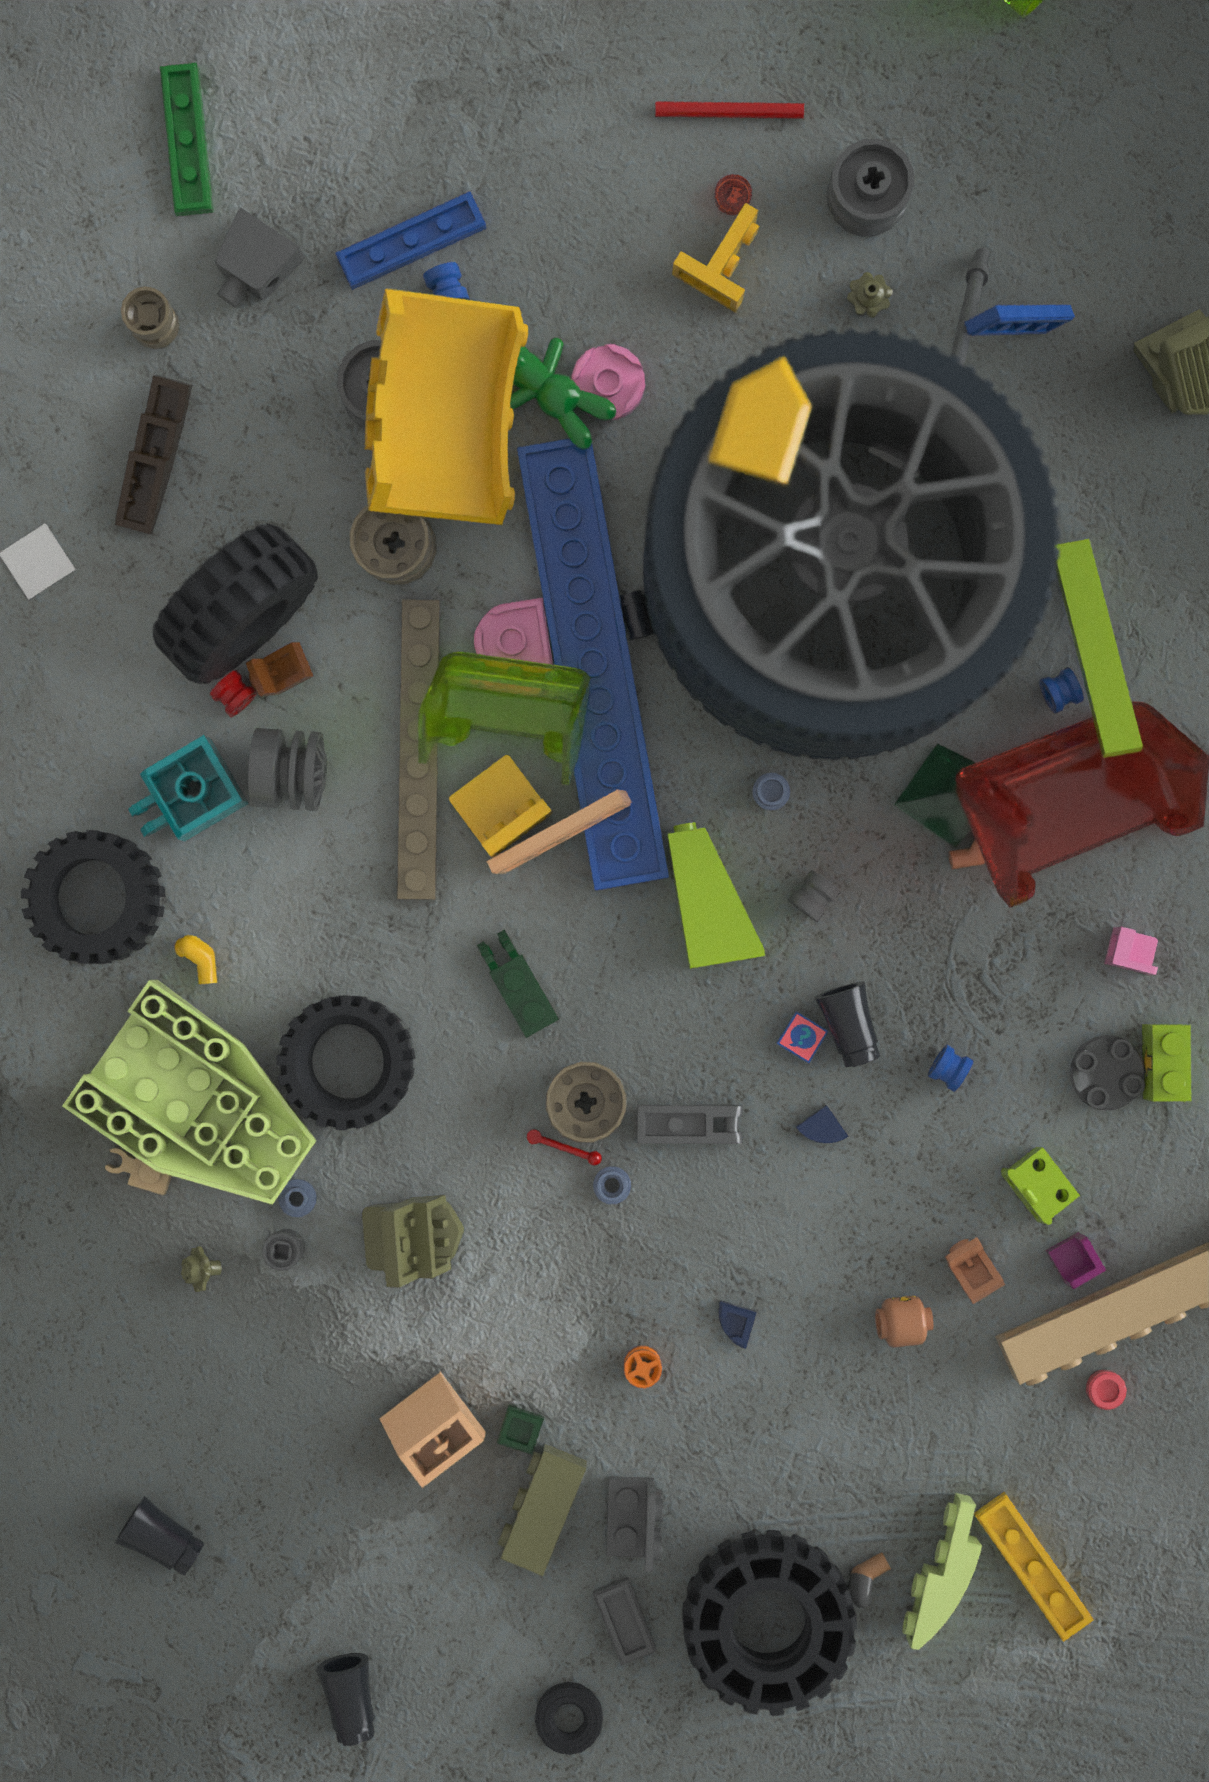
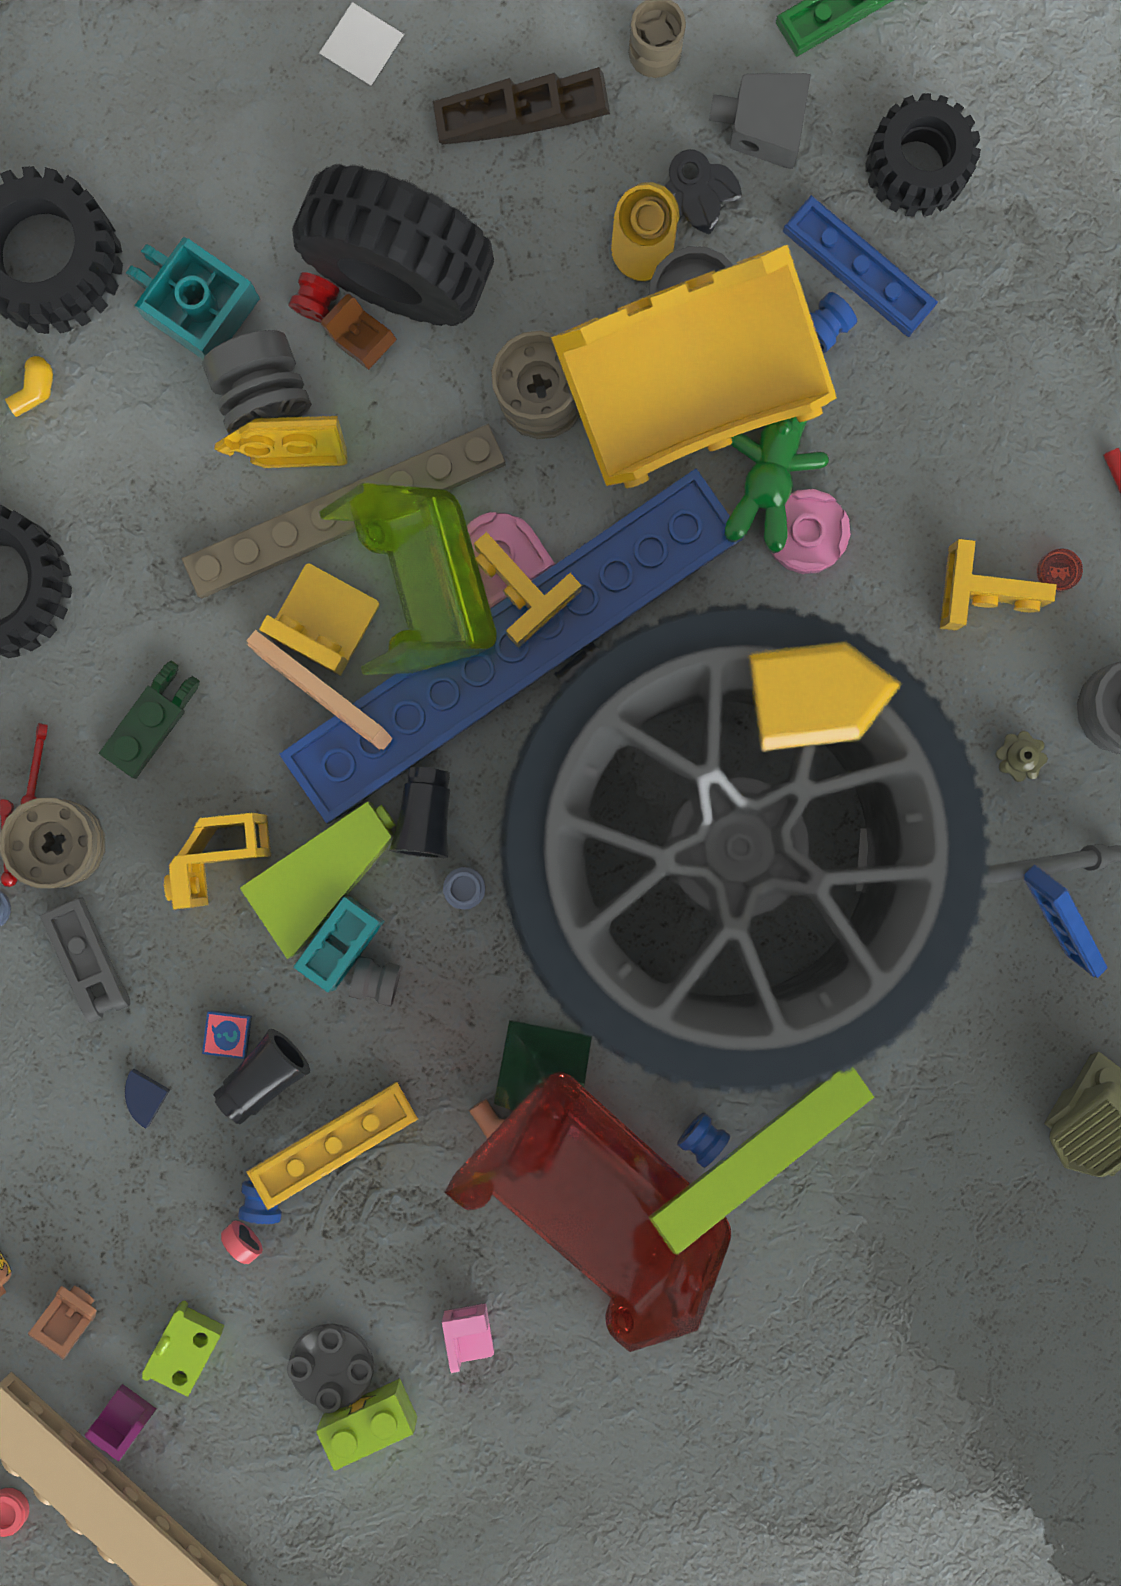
camera: 60 degrees right, 0 degrees up
(294, 346) = (701, 197): none -> black plate
(303, 400) = (644, 229): none -> yellow cap
(341, 119) = (932, 124): none -> black tyre
(345, 766) = (288, 442): none -> yellow tile
(538, 1113) = (40, 737): none -> red hinge
(553, 631) = (522, 590): none -> yellow bracket
(666, 1010) = (187, 877): none -> yellow piece
(697, 795) = (423, 814): none -> black plant
(772, 909) = (339, 944): none -> teal brick
(931, 989) = (331, 1145): none -> yellow tile
(975, 1099) = (241, 1242): none -> coral tile

